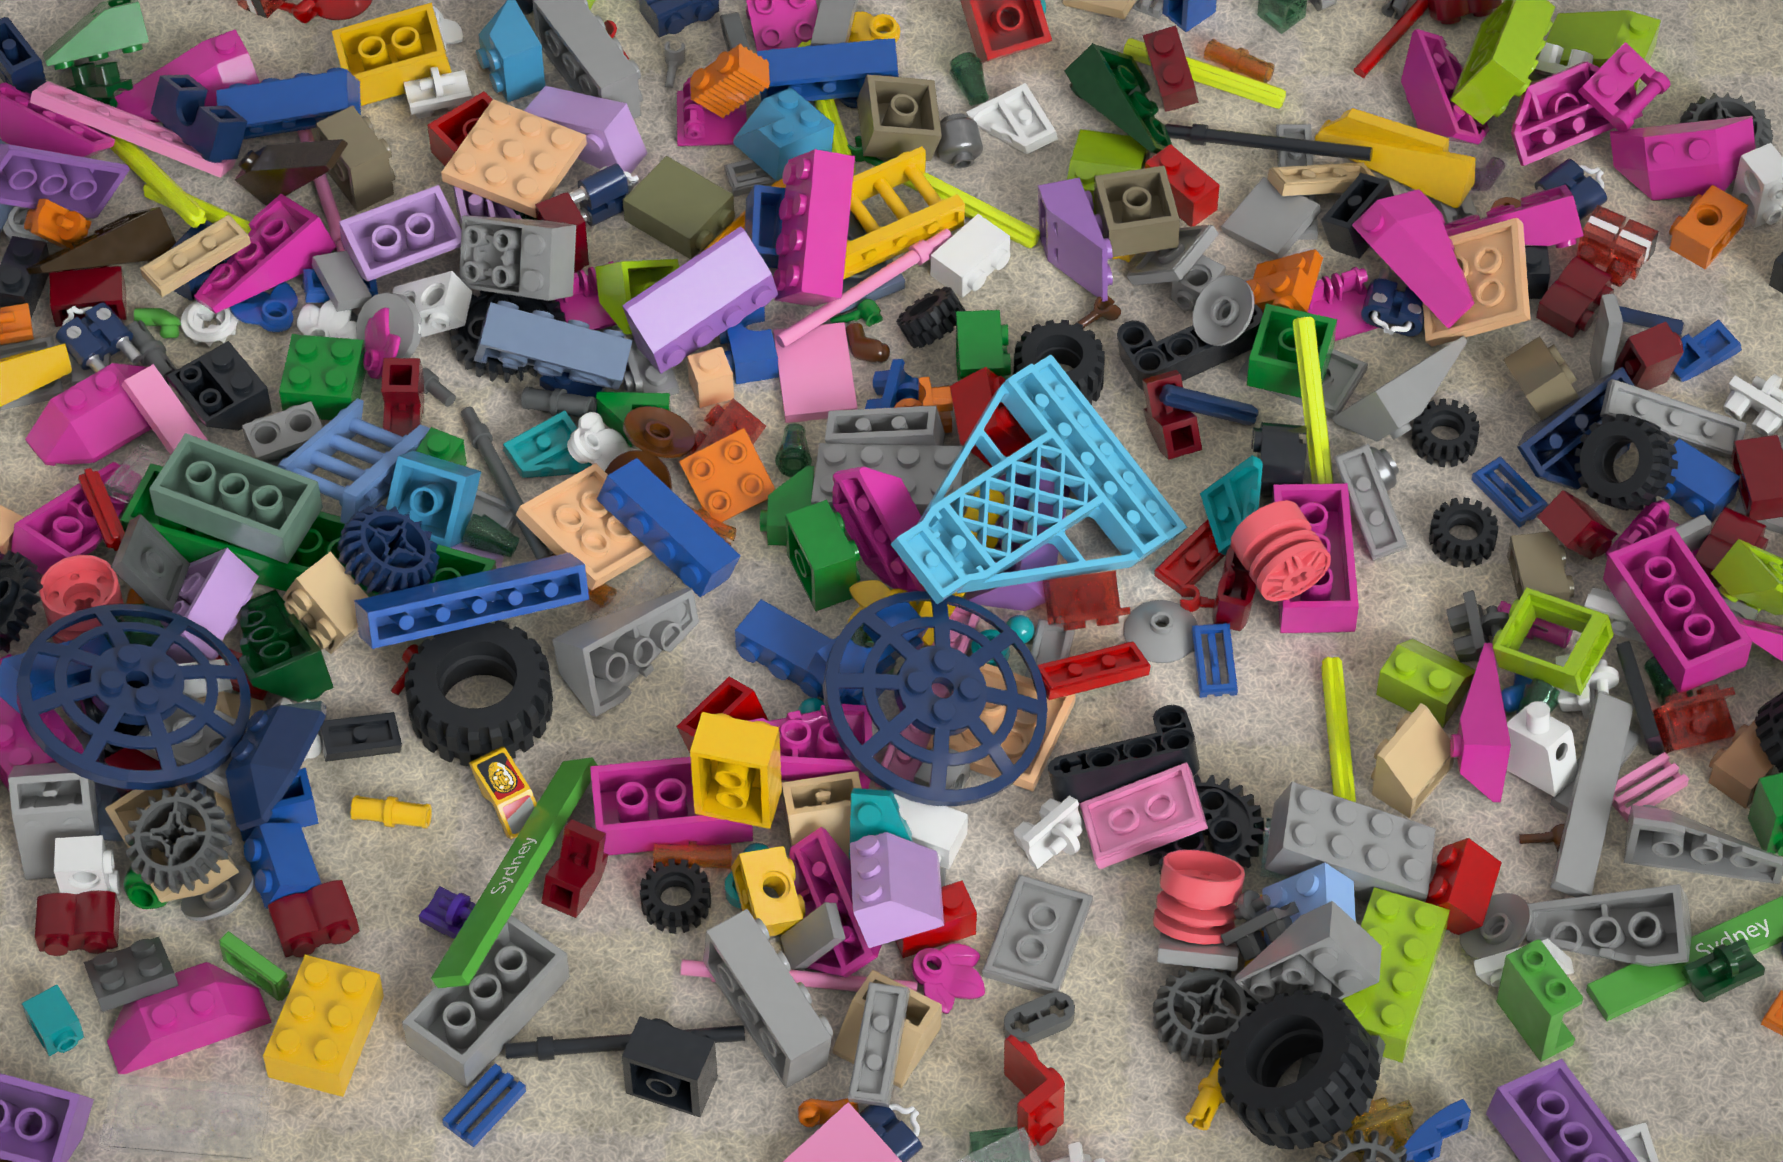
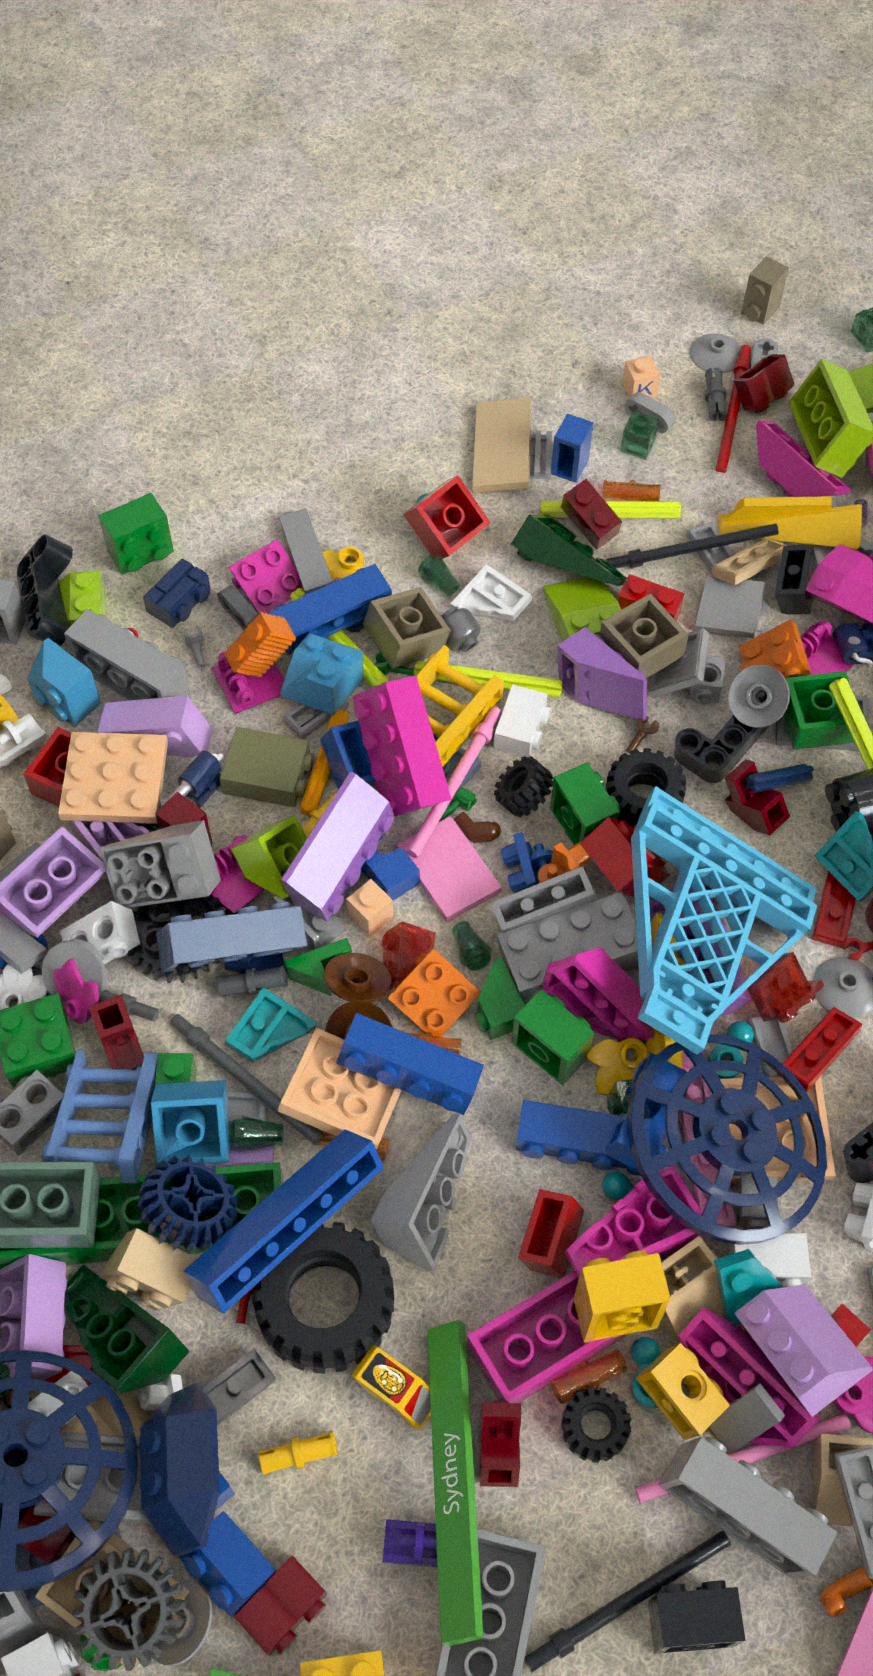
camera: 25 degrees left, 5 degrees up
(594, 442) = (305, 1007): white plate -> none

